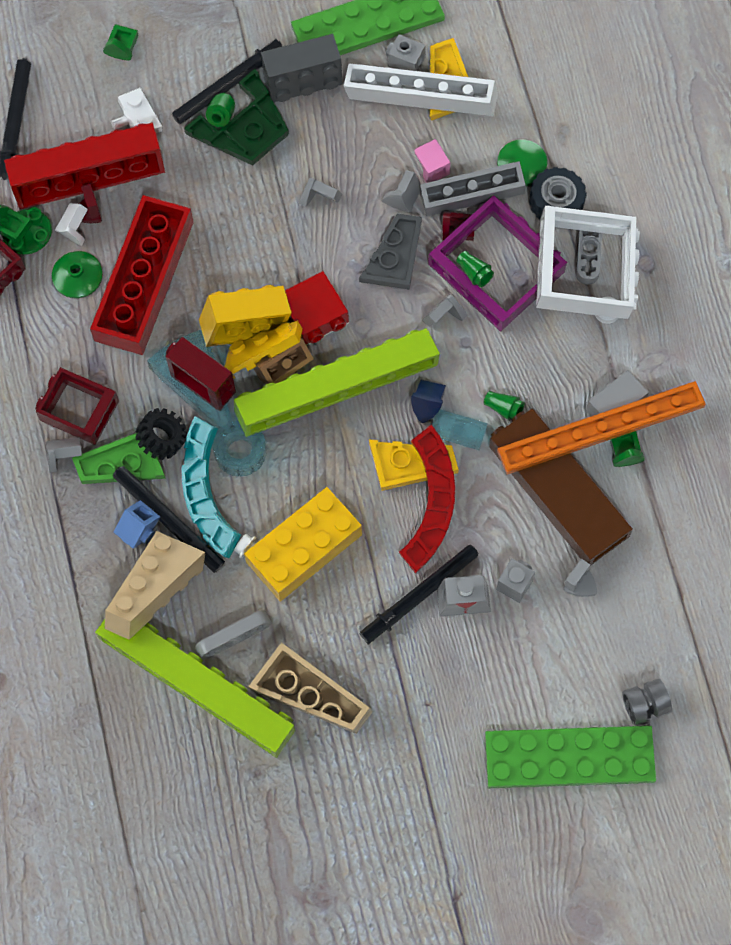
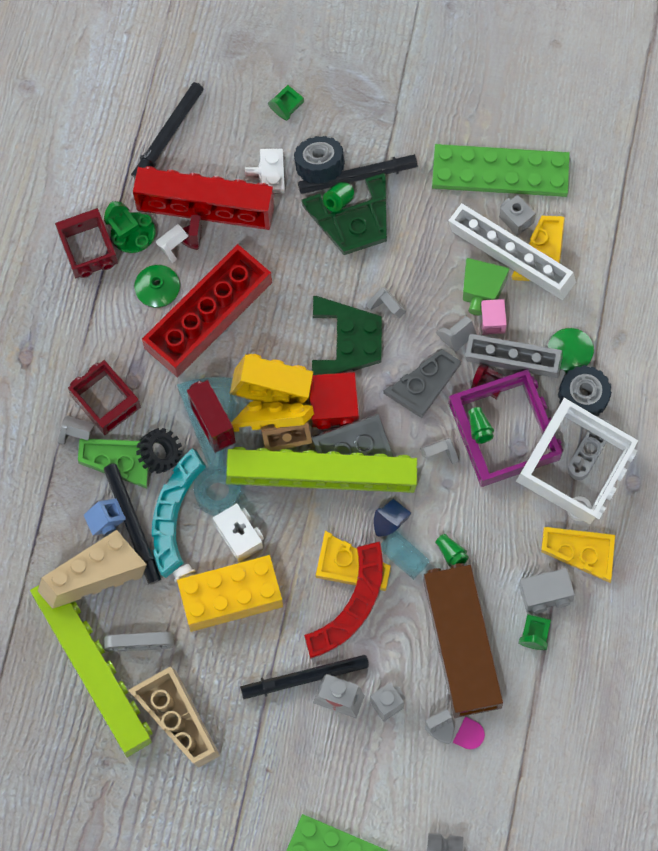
camera: 25 degrees right, 0 degrees up
(183, 81) = (319, 159): none -> black wheel
(287, 492) = (240, 545): none -> white brick
(302, 68) = (421, 190): dark grey brick -> none
(305, 238) = (357, 337): none -> dark green wing
(359, 331) = (361, 436): none -> dark grey wing
(403, 134) = (482, 283): none -> bright green torso
(601, 427) = (519, 607): orange tile -> none
(611, 576) = (469, 734): none -> dark pink piece
(630, 348) = (581, 549): none -> yellow wing

